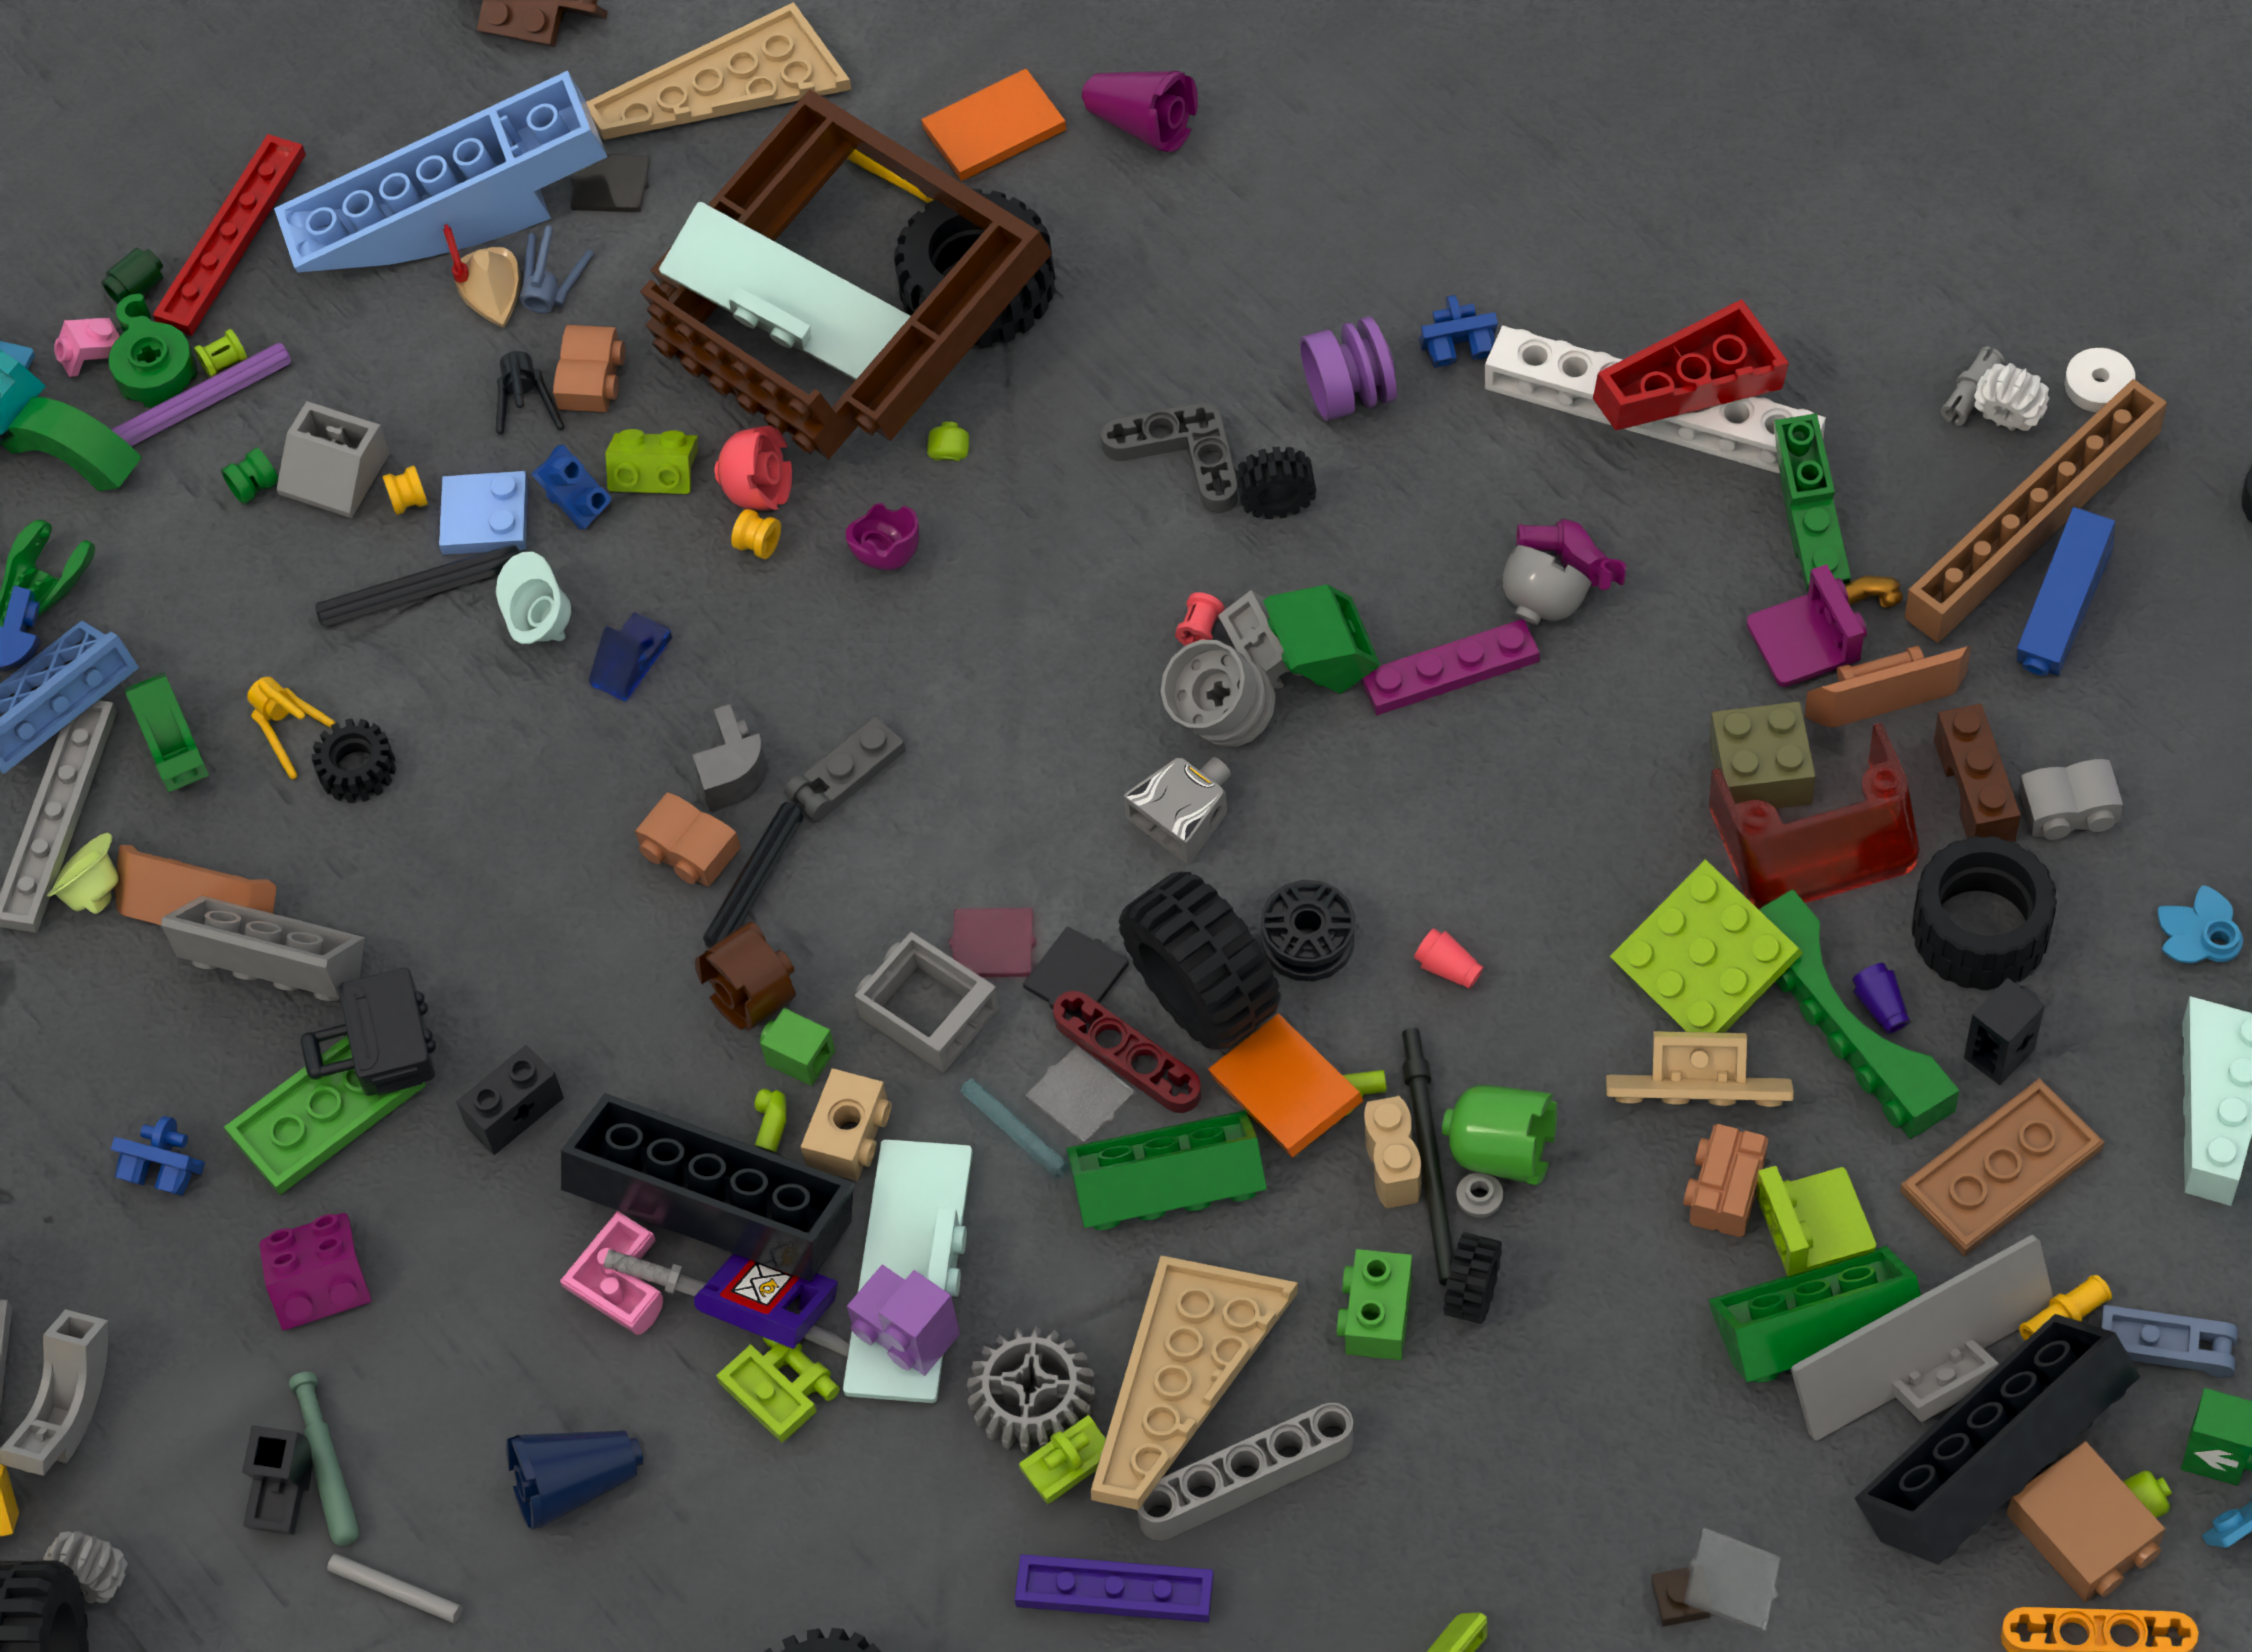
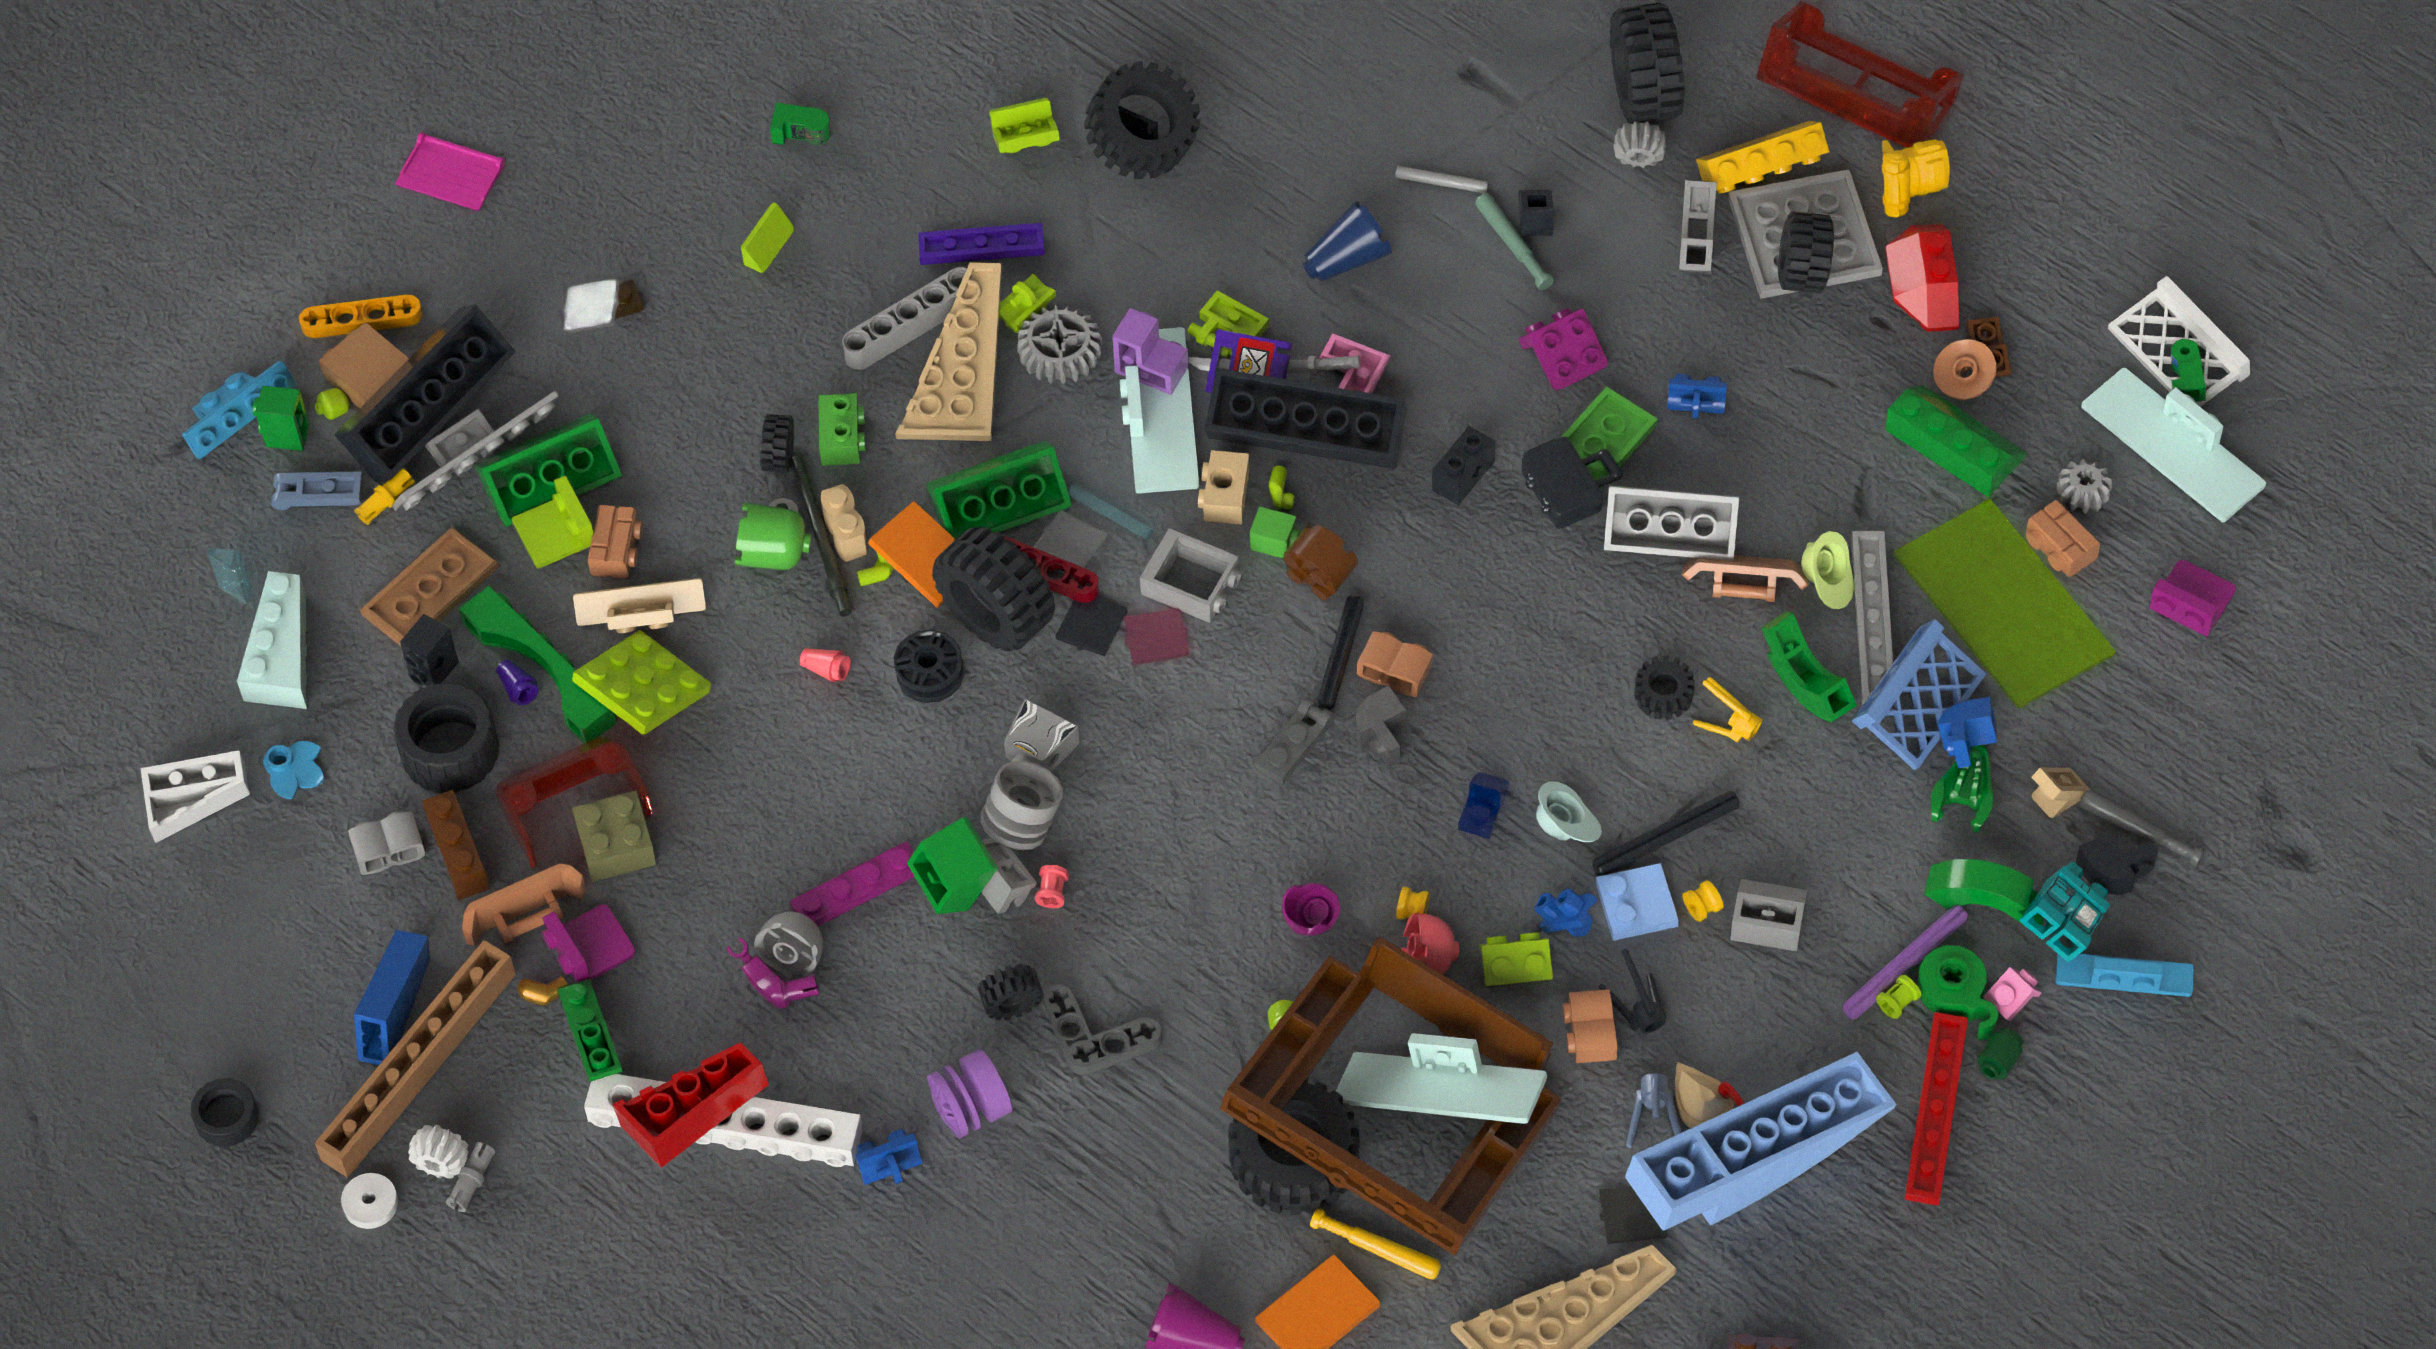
camera: 165 degrees right, 0 degrees up
(250, 476) = (1831, 895): green wheel -> none

